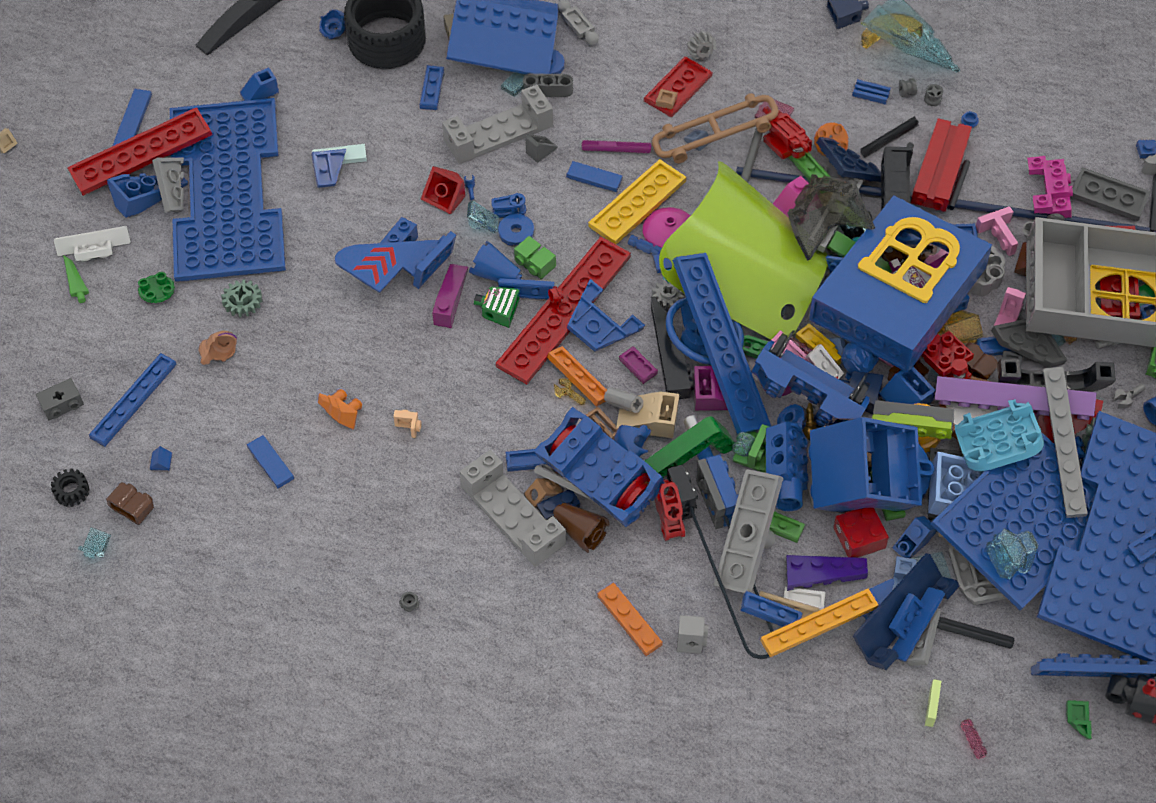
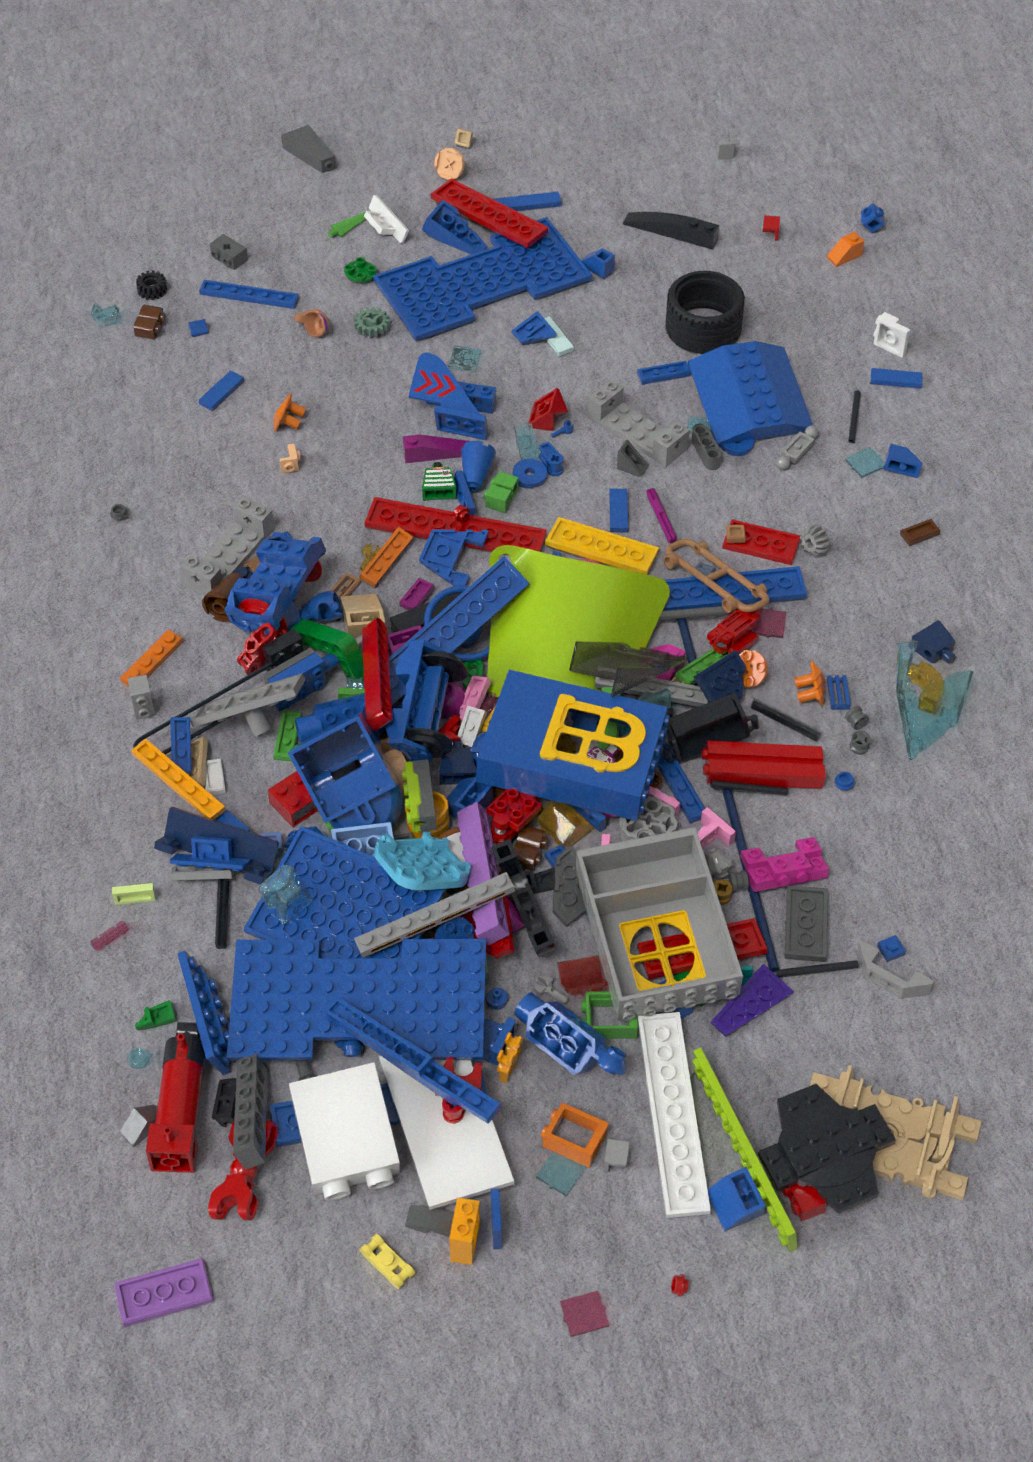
camera: 70 degrees right, 5 degrees down
(44, 161) = (449, 163): none -> light nougat tile
(169, 181) = (464, 238): light grey wing -> none
(331, 237) = (464, 358): none -> clear light blue piece
(623, 400) = (367, 589): light grey axle -> none
(732, 90) = (780, 584): none -> blue plate
(761, 410) = (376, 674): none -> red beam
(823, 569) = (247, 781): dark purple wing -> none
(859, 98) = (815, 677): none -> orange connector
(1124, 745) = (138, 1058): none -> clear light blue plate
(1133, 365) = (581, 975): none -> clear red bracket

